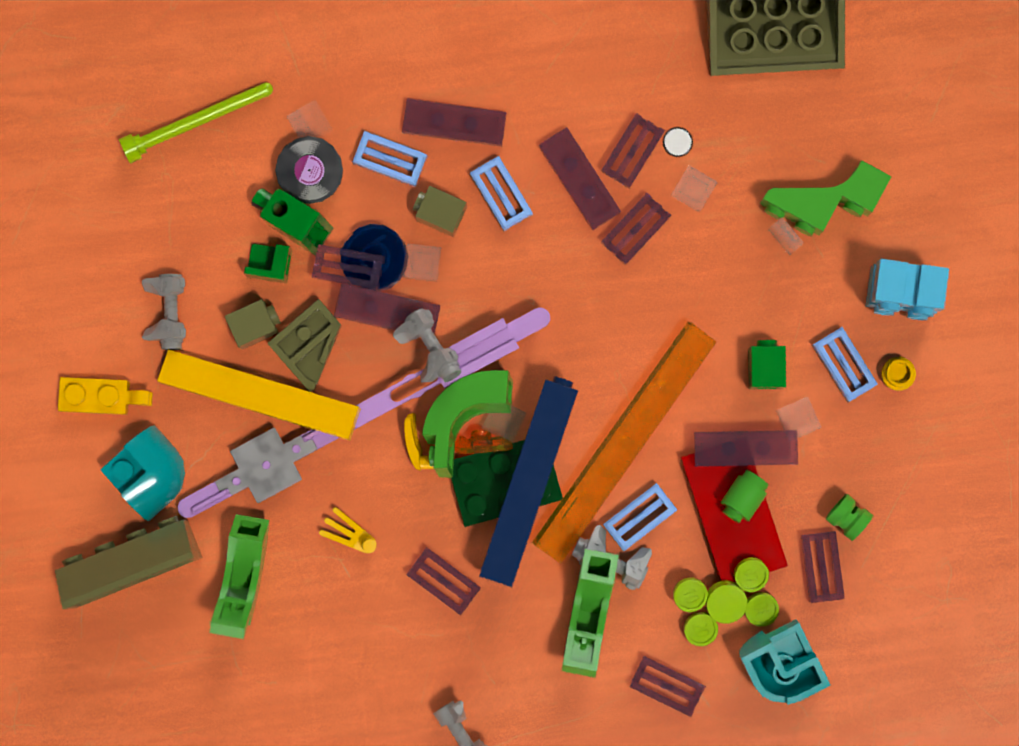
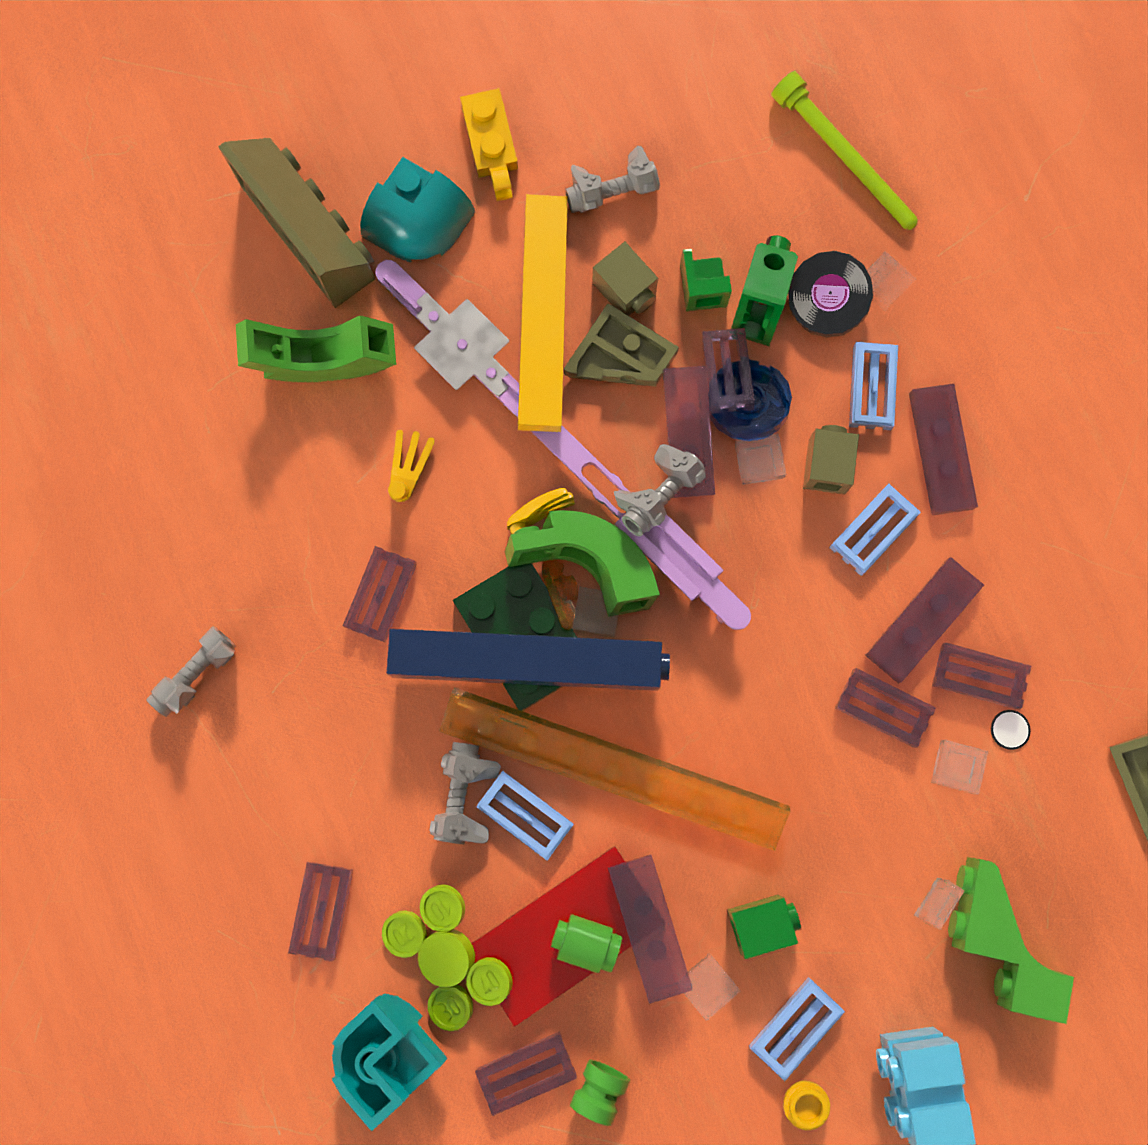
camera: 75 degrees right, 5 degrees down
(589, 612) = (382, 783): bright green arch -> none

